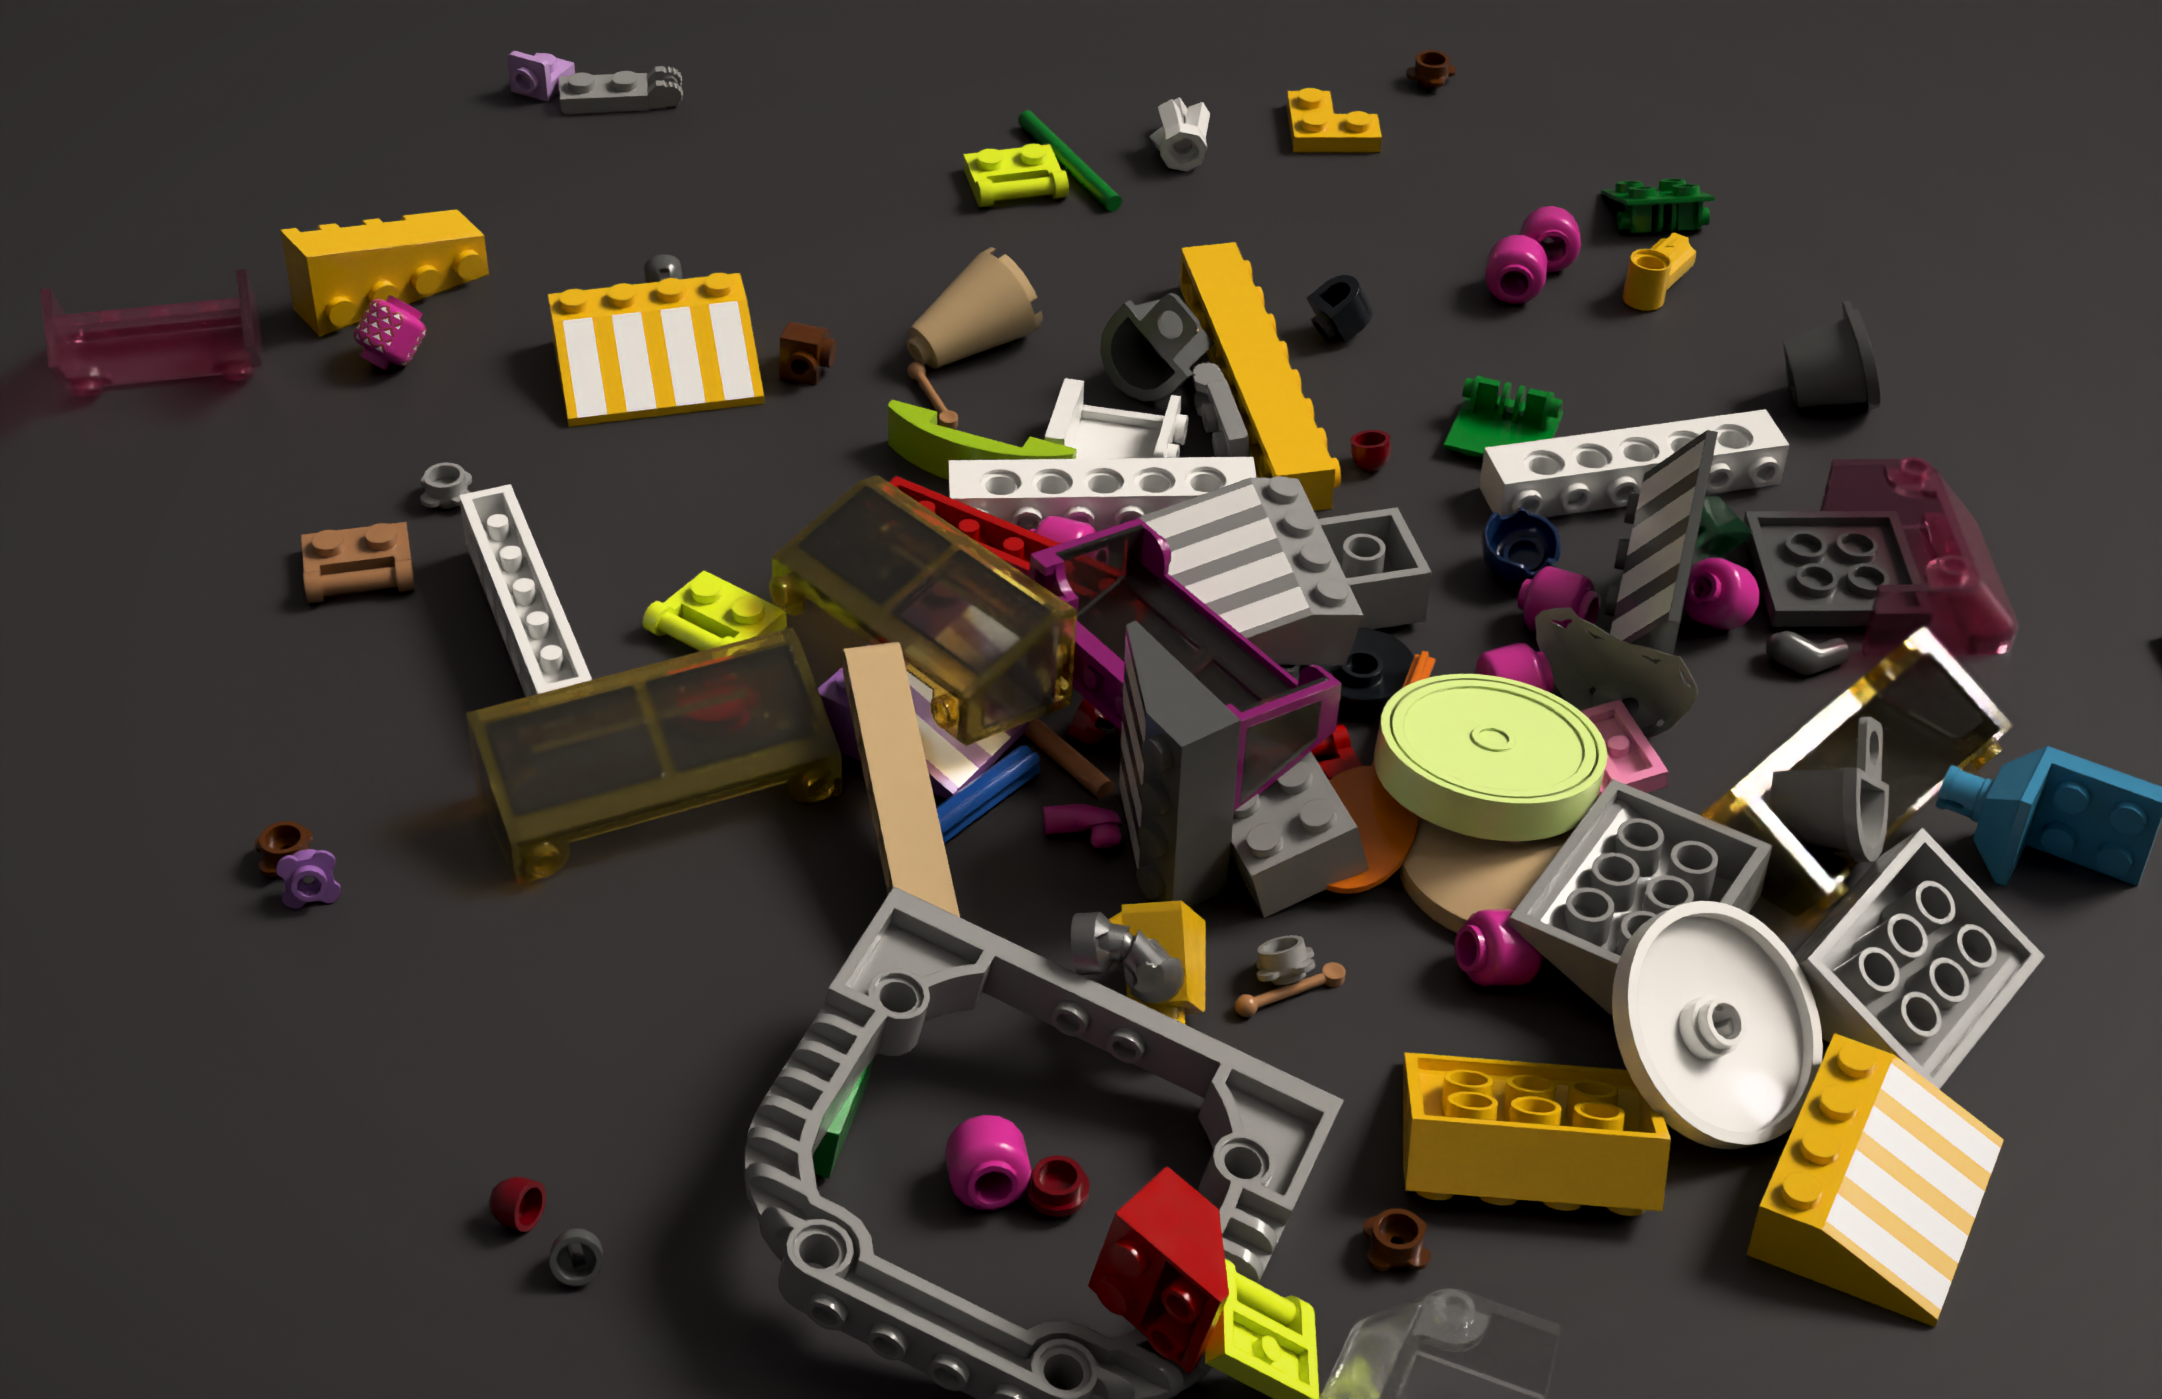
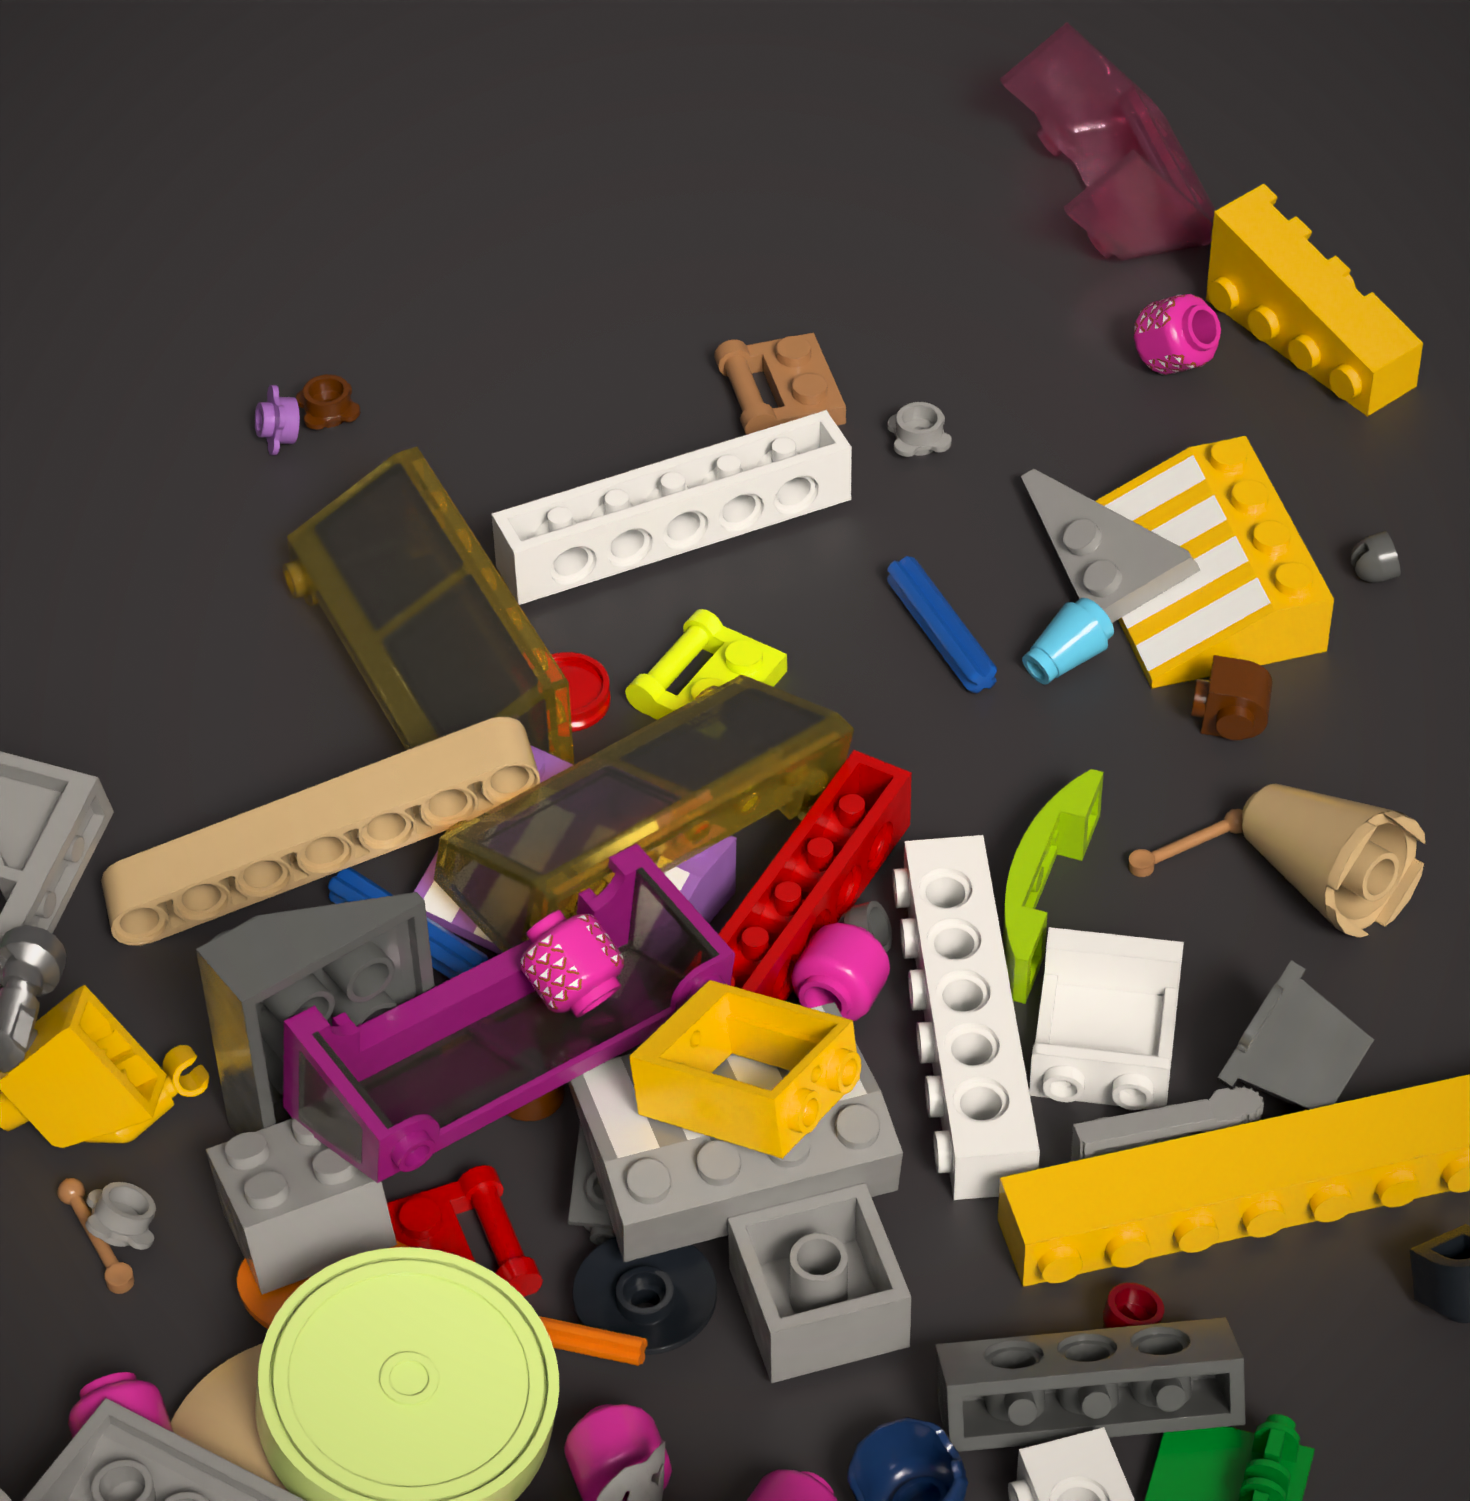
camera: 90 degrees right, 5 degrees up
(635, 395) = (1105, 552): none -> light grey wing
(680, 492) = (942, 624): none -> blue axle
(721, 423) = (1069, 640): none -> medium azure cone
(1114, 606) = (572, 963): none -> dark pink head
(1233, 563) = (677, 1064): none -> yellow window
(1438, 463) = (1090, 1380): none -> dark grey brick

